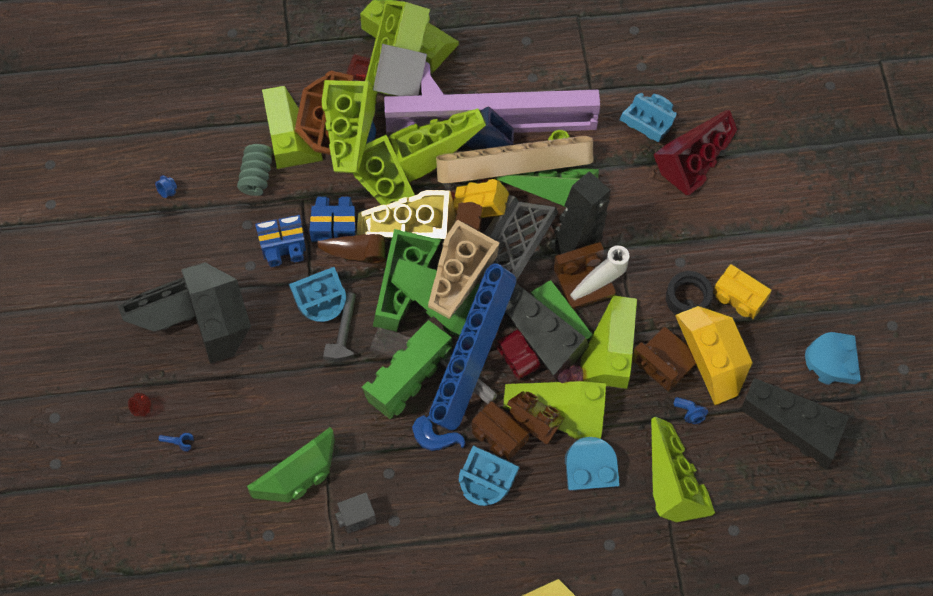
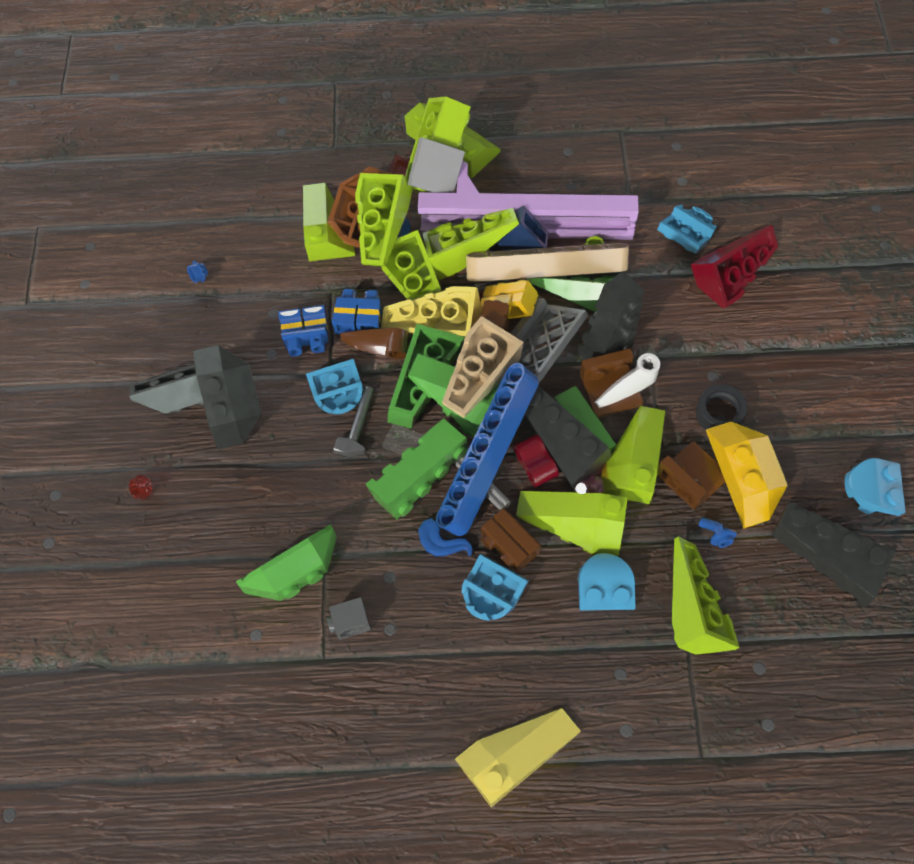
camera: 10 degrees right, 0 degrees up
(178, 440) = (175, 527): blue hand -> none
(255, 169) = (285, 259): sand green piece -> none
(534, 416) = (548, 527): reddish brown bracket -> none
(741, 292) = (777, 410): yellow brick -> none

